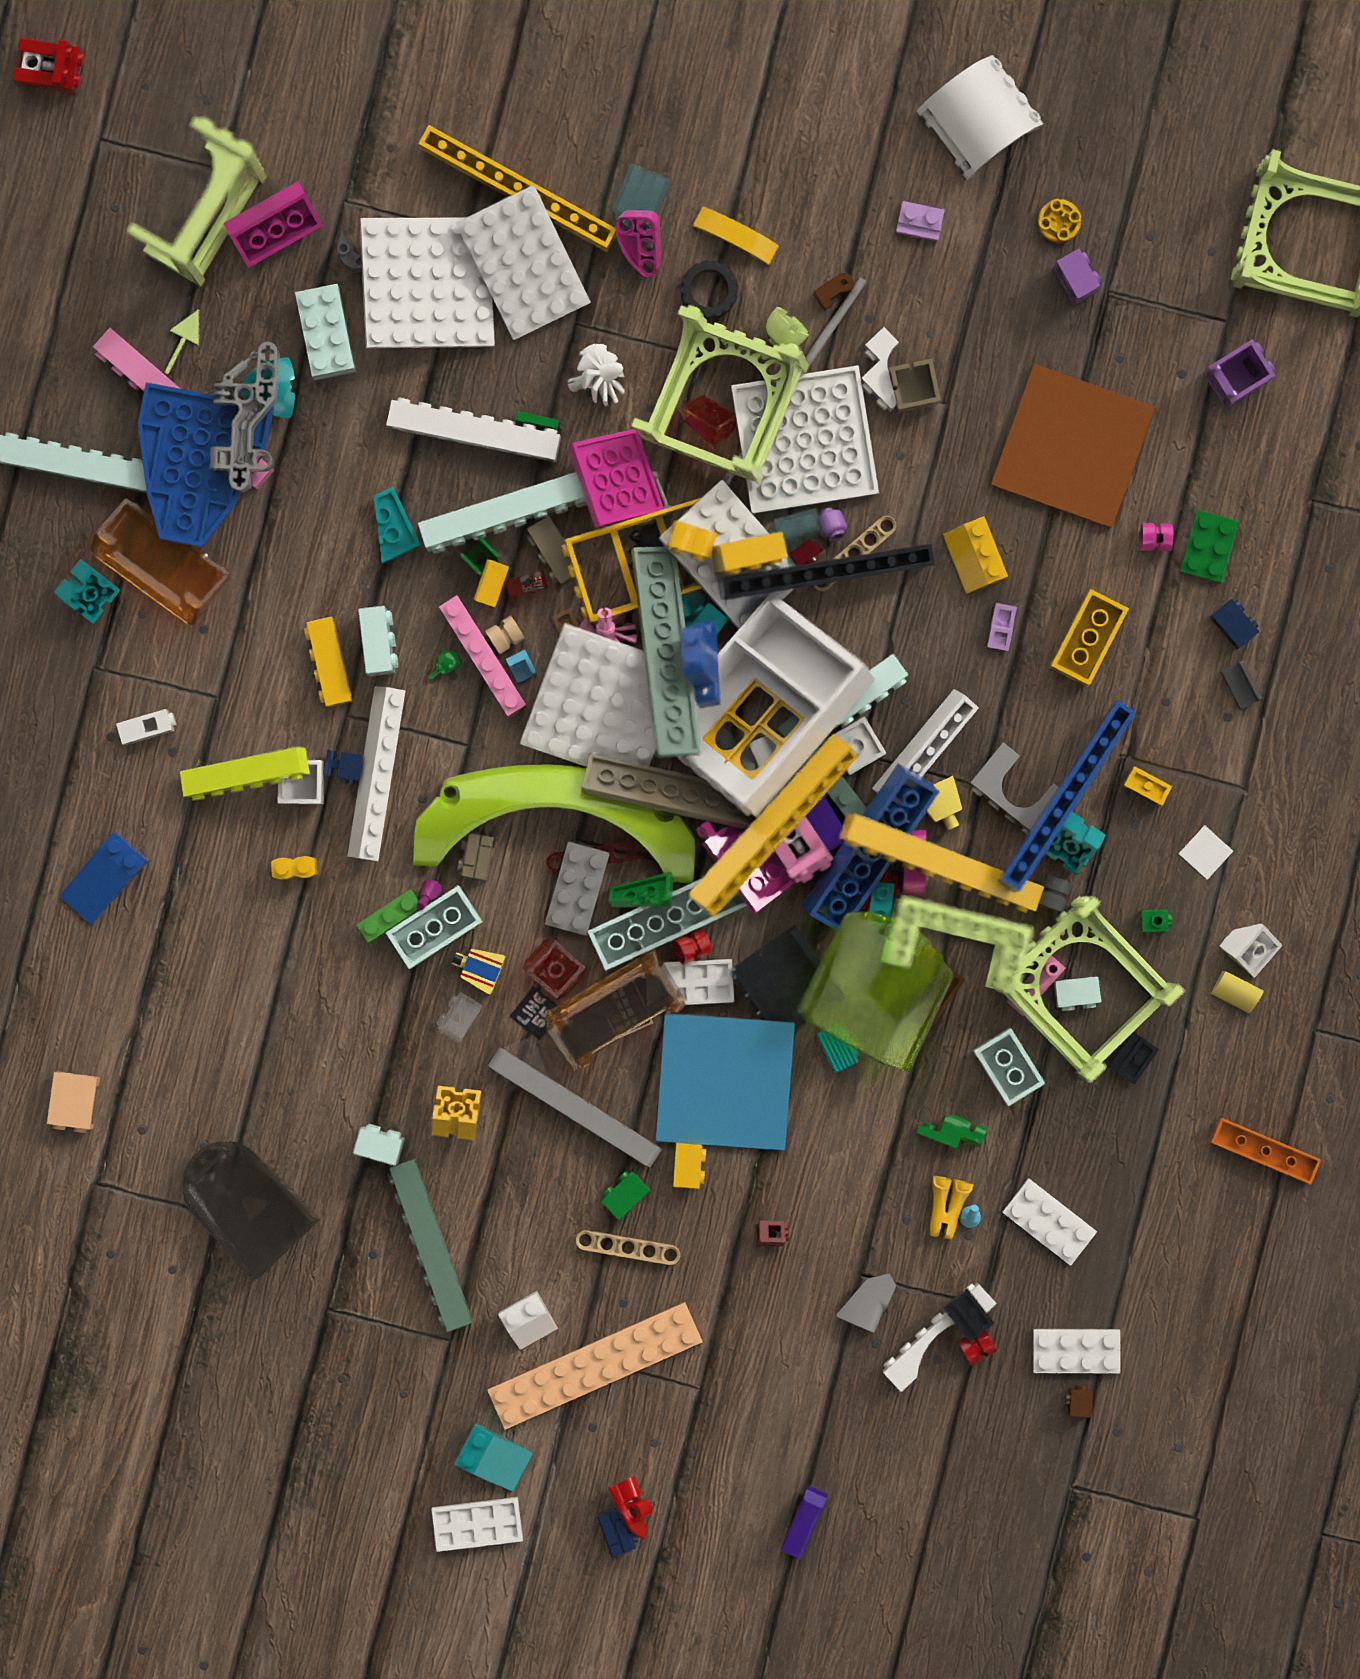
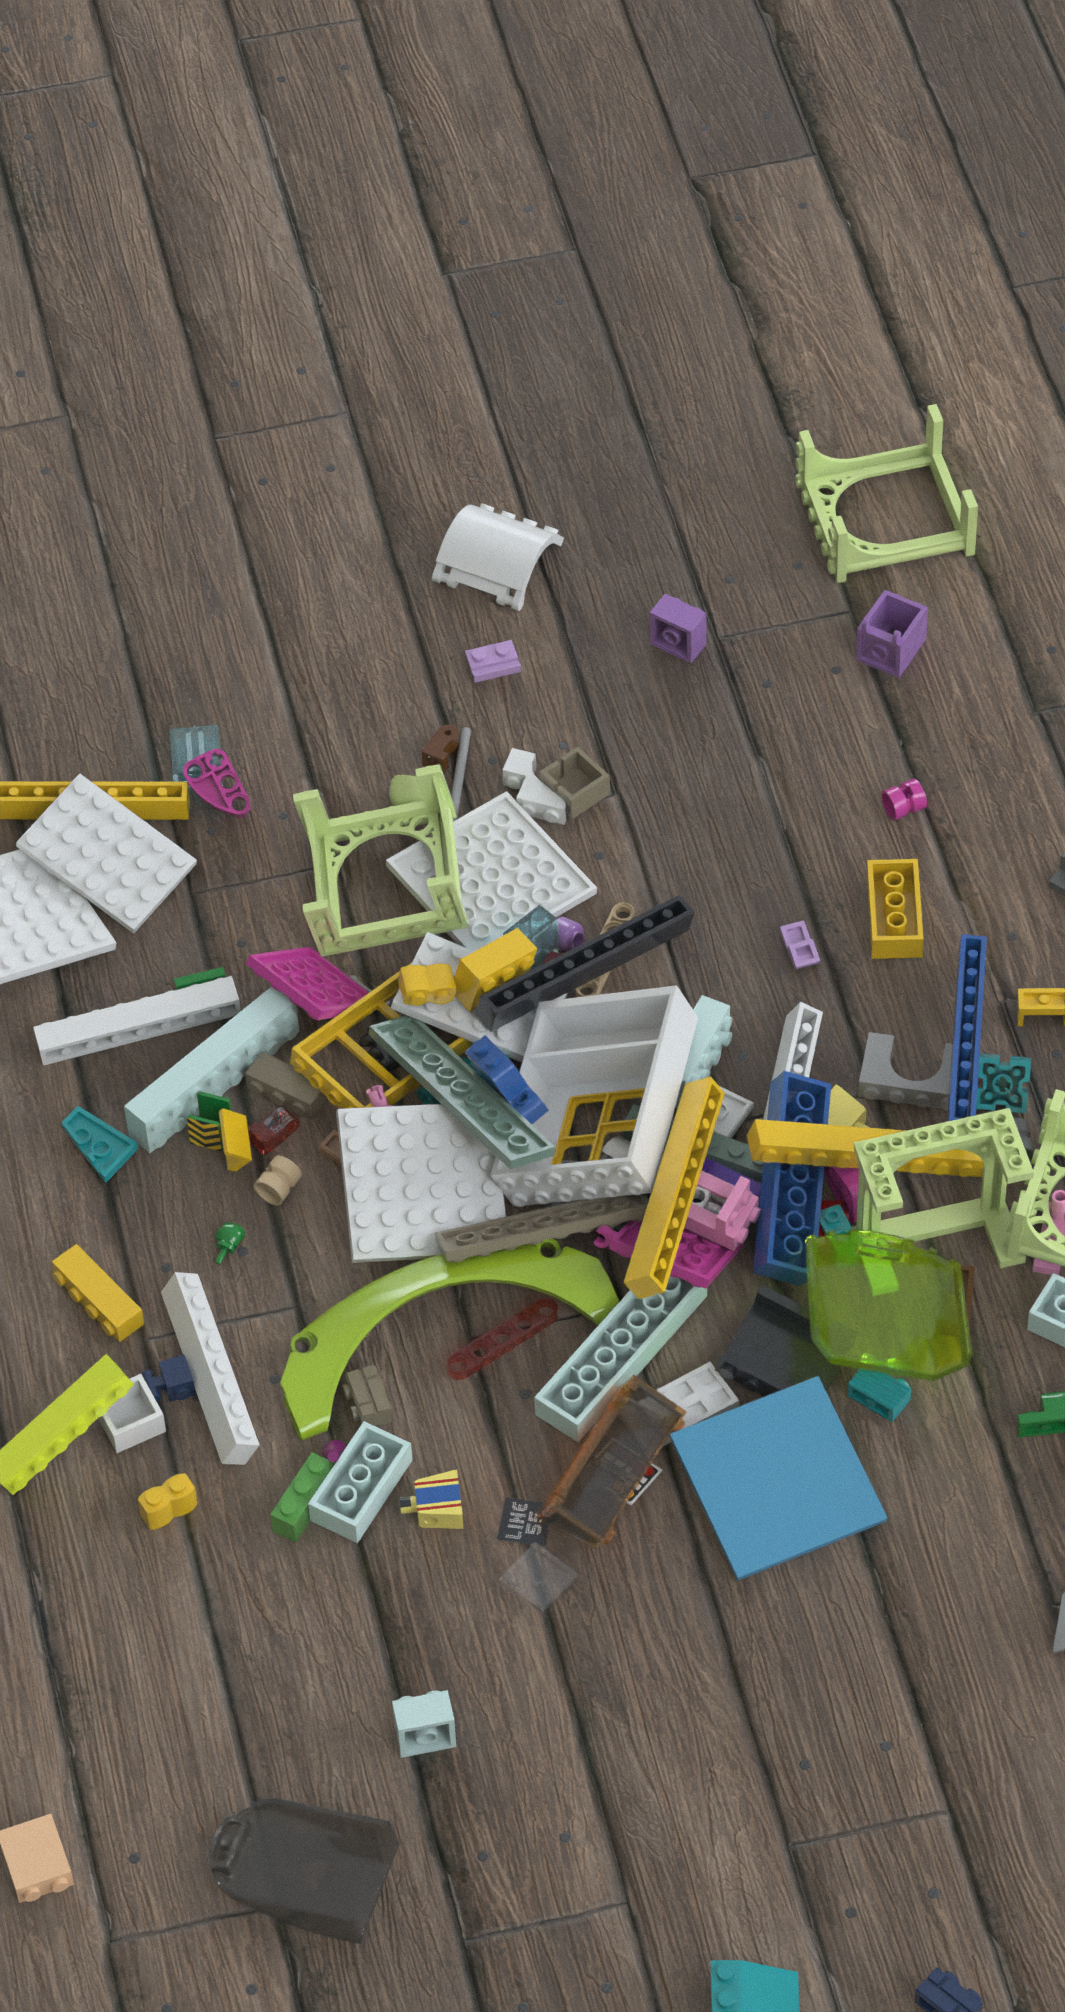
camera: 25 degrees left, 35 degrees down
(378, 640) = (140, 1242): light aqua brick -> none
(430, 1244) = (545, 1806): sand green brick -> none
(456, 1113) = (493, 1648): yellow brick -> none
(459, 1017) = (441, 1558): clear brick -> none
(482, 656) = (265, 1211): bright pink brick -> none
(521, 666) = (312, 1202): medium azure panel -> none
(527, 1320) = (704, 1828): white slope -> none
(554, 968) = (520, 1460): clear red slope -> none
(574, 1107) = (626, 1584): light grey beam -> none
(577, 888) = (498, 1375): light grey plate -> none
(594, 1365) = (811, 1844): light nougat plate -> none
(599, 373) = (243, 909): white piece -> none
(625, 1194) = (736, 1646): green brick -> none
(630, 1506) = (942, 1955): red panel -> none
(638, 1247) = (765, 1711): tan beam -> none
(646, 892) = (572, 1338): green wing -> none
(688, 1165) = (789, 1582): yellow brick -> none
(693, 946) = (659, 1365): red wheel -> none
(708, 419) = (380, 903): clear red slope -> none
(712, 267) = (309, 782): black tyre -> none
(736, 234) = (313, 745): yellow slope -> none
(775, 1227) = (925, 1604): dark red brick -> none
(975, 555) = (731, 895): yellow slope -> none
(1059, 221) = (630, 602): yellow tile -> none
(1072, 446) = (768, 769): dark orange tile -> none
(1209, 546) = (962, 789): green plate -> none
(1235, 623) = (1033, 836): dark blue brick -> none

